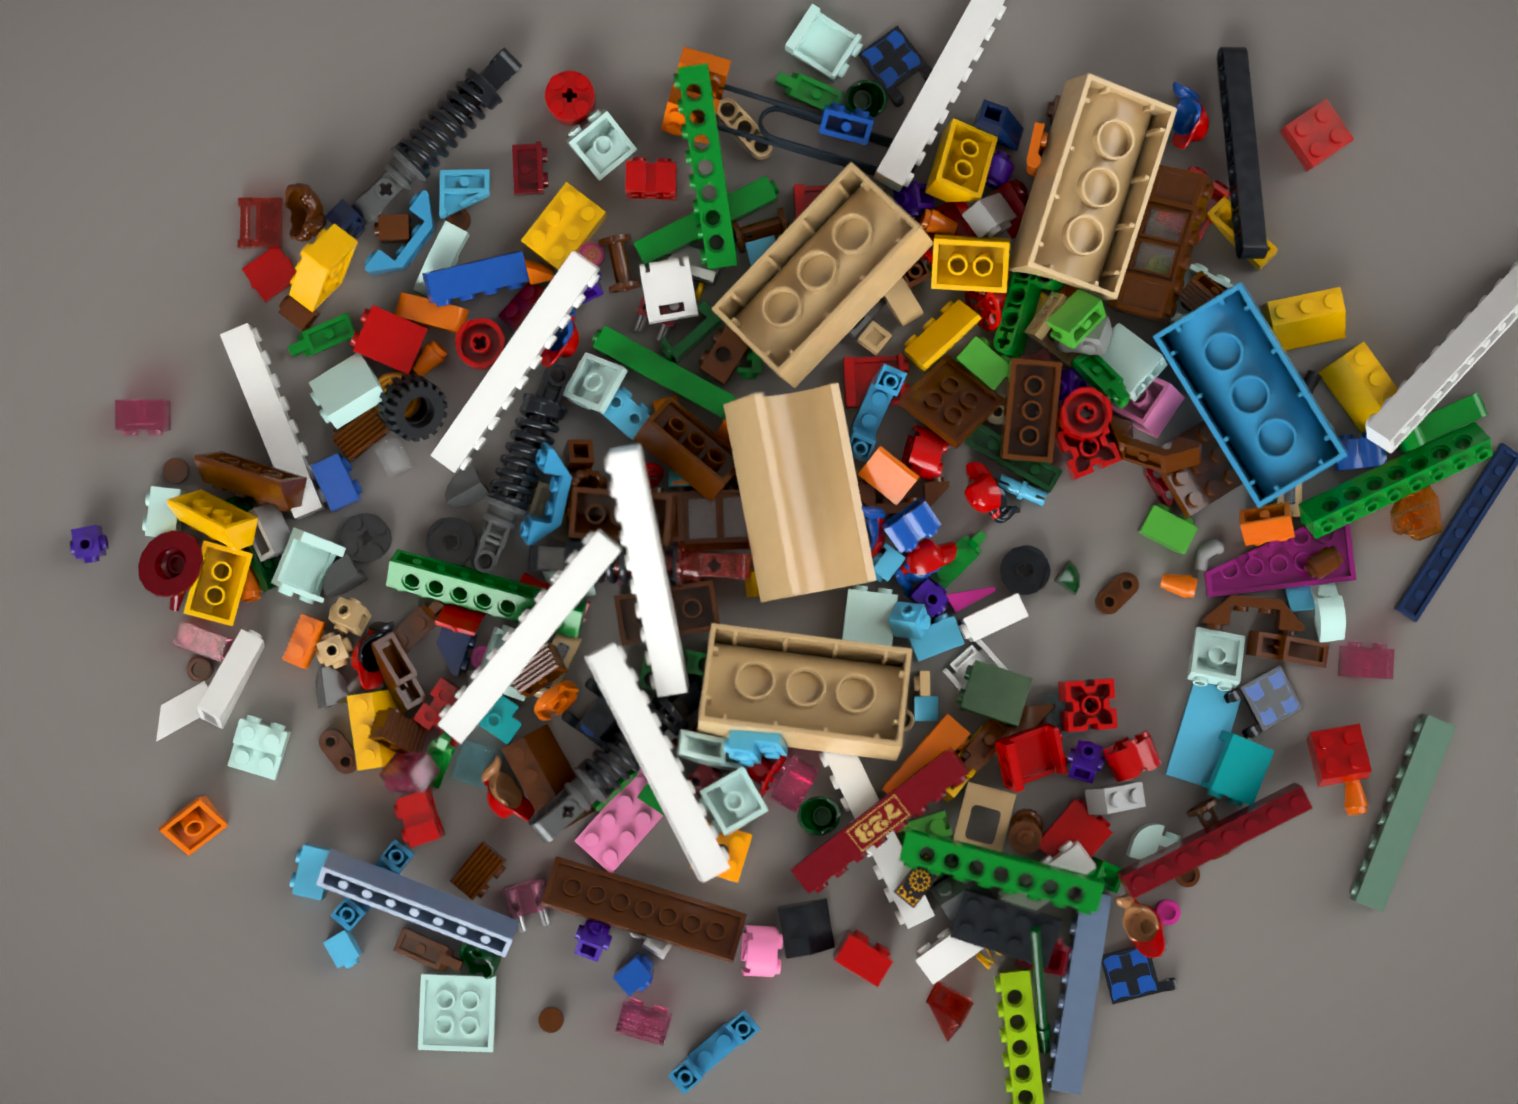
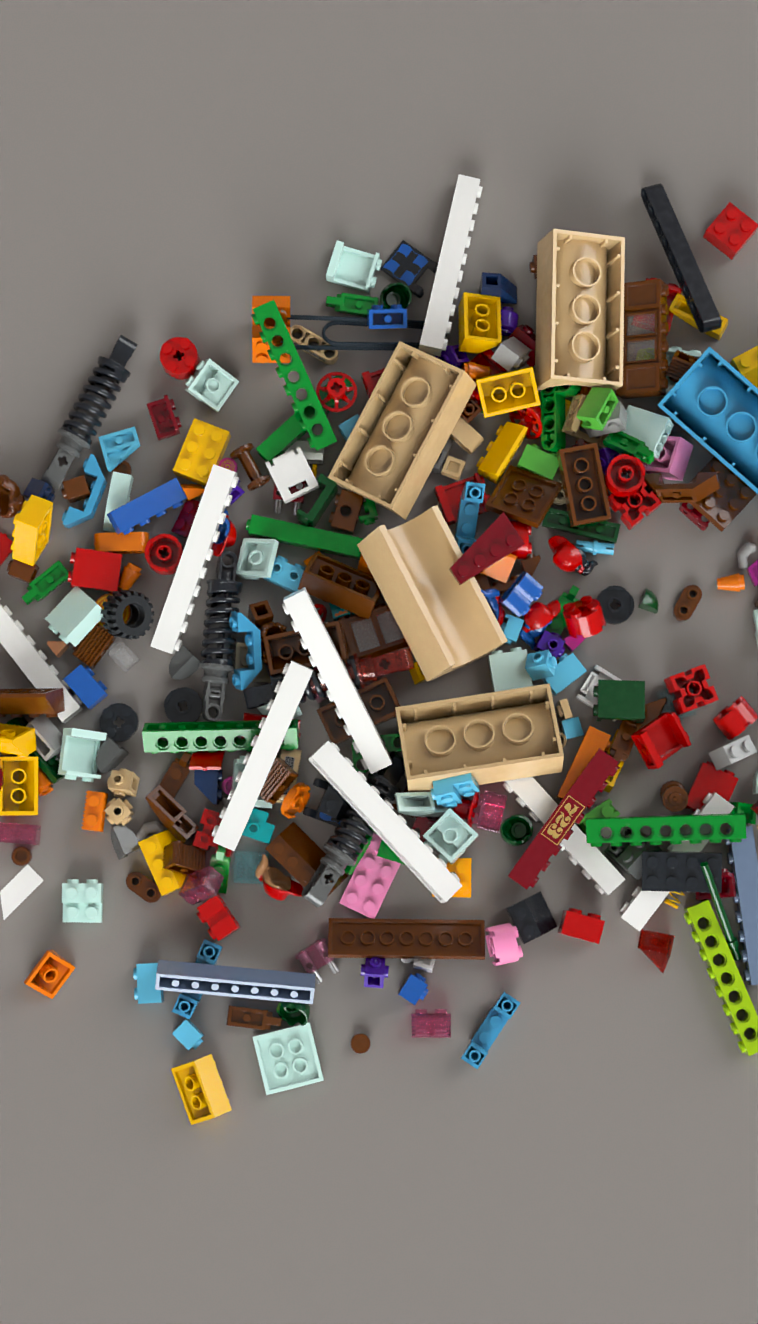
camera: 10 degrees left, 5 degrees down
(231, 678) = (47, 855): white slope -> none
(314, 423) = (58, 647): none -> nougat slope
(340, 1019) = (201, 1089): none -> yellow slope
(363, 656) = (141, 809): hair -> none
(478, 871) = (274, 945): reddish brown brick -> none
(651, 180) = (256, 399): red brick -> none
(755, 199) = (336, 390): none -> red wheel
(760, 230) = (356, 408): reddish brown hose -> none
(886, 458) = (487, 550): none -> dark red wing
(915, 884) = (604, 859): tile -> none
(981, 576) = (584, 617): none -> red brick
(990, 798) = (638, 780): tan window -> none
(992, 618) = (602, 645): white brick -> none
(1037, 145) = (531, 294): orange plate -> none
(1085, 761) = (702, 732): dark purple brick -> none
(1168, 529) = (710, 544): bright green brick -> none
(1190, 118) = (636, 244): blue hair -> none

